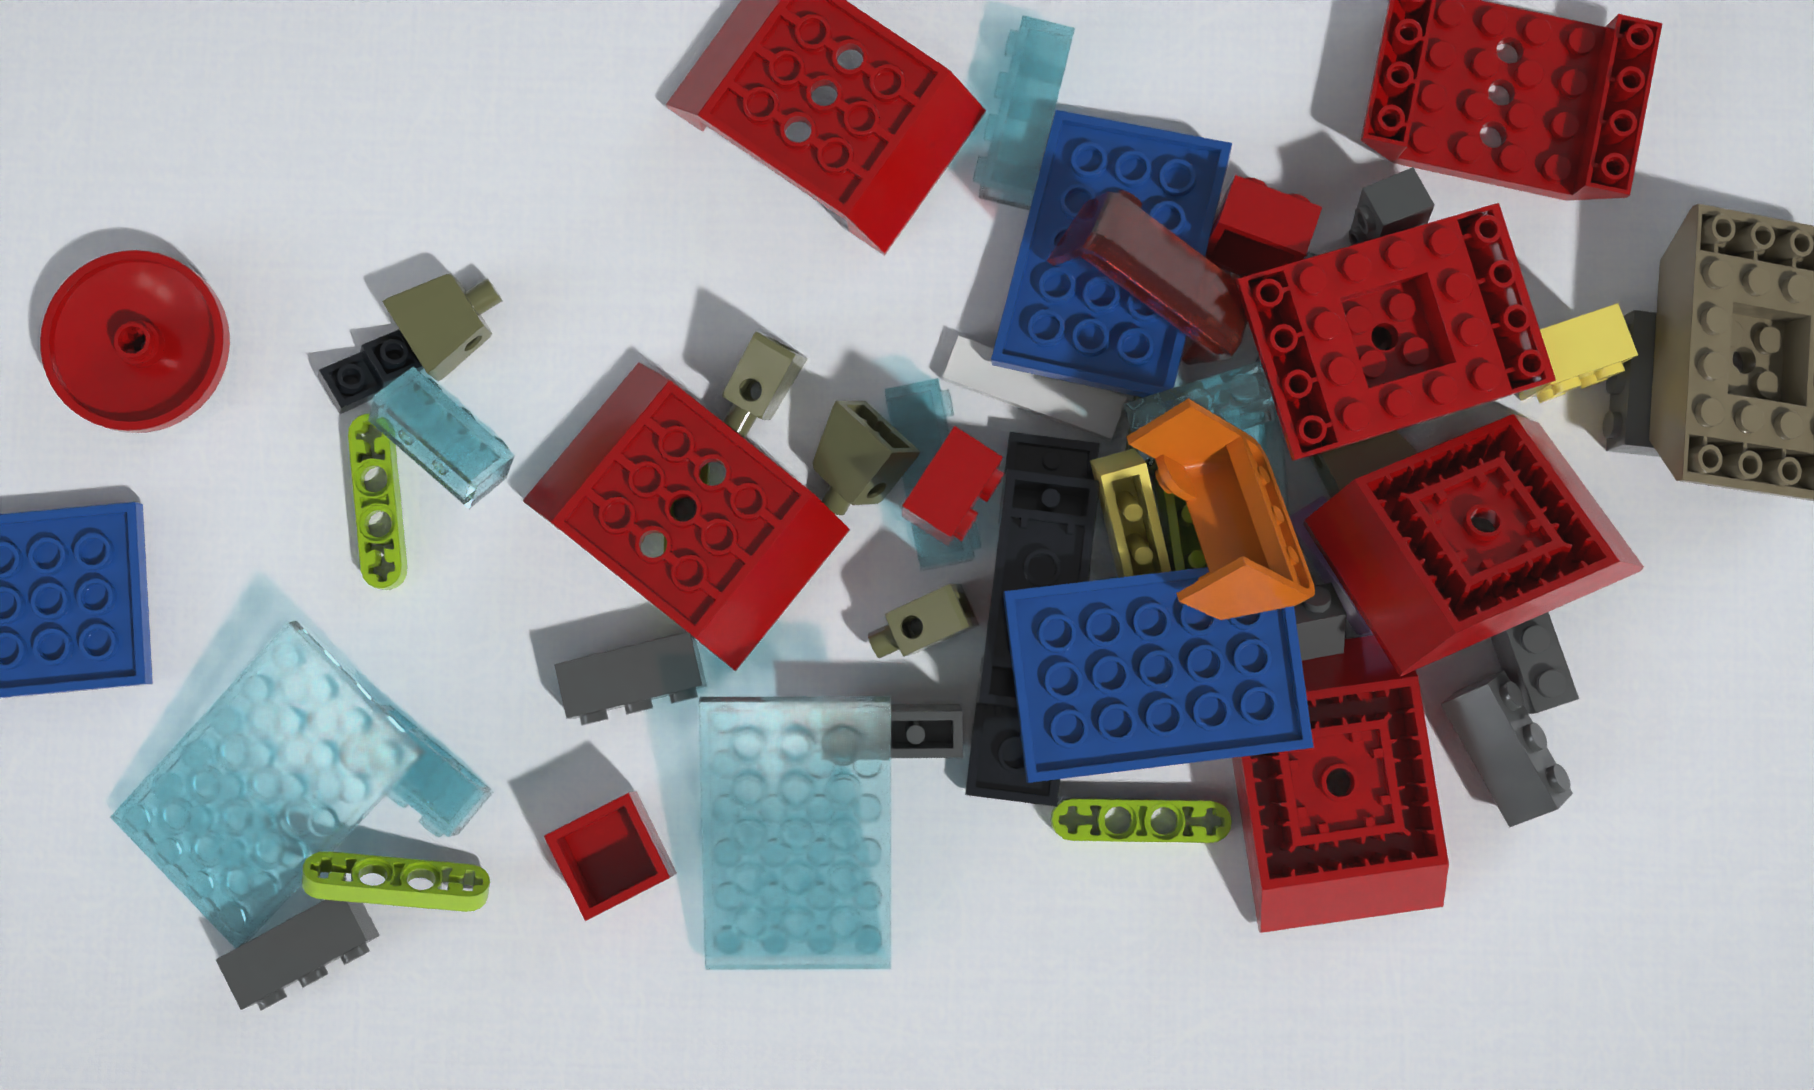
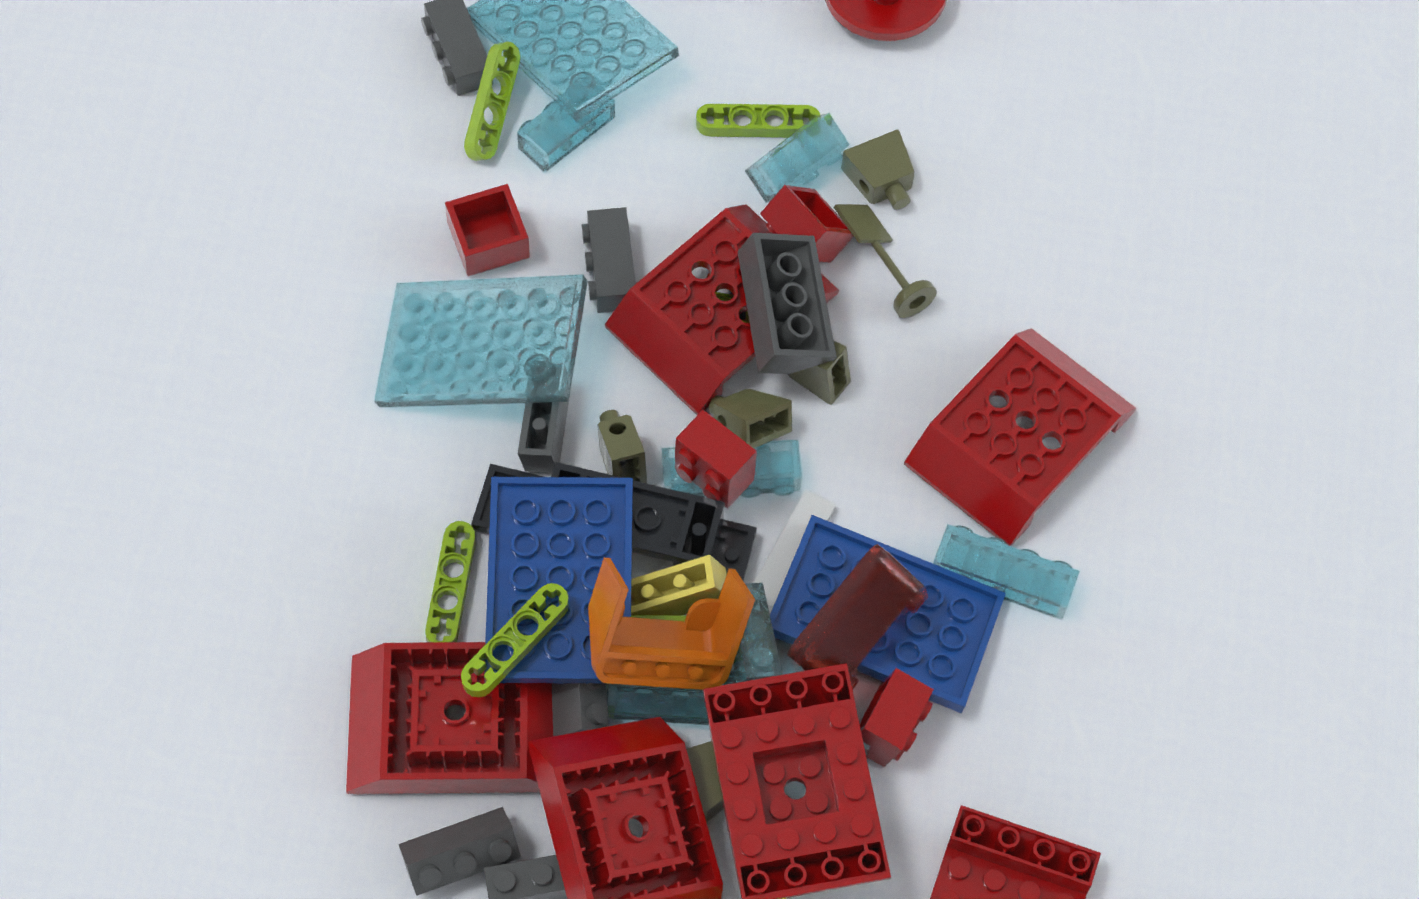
camera: 95 degrees right, 20 degrees down
(369, 371) = (850, 118): black slope -> none
(545, 330) = (868, 229): none -> olive piece
(555, 410) = (806, 213): none -> red piece
(702, 417) = (786, 302): none -> dark grey slope
(1265, 709) = (512, 637): none -> lime beam
(1391, 207) = (900, 815): dark grey brick -> none

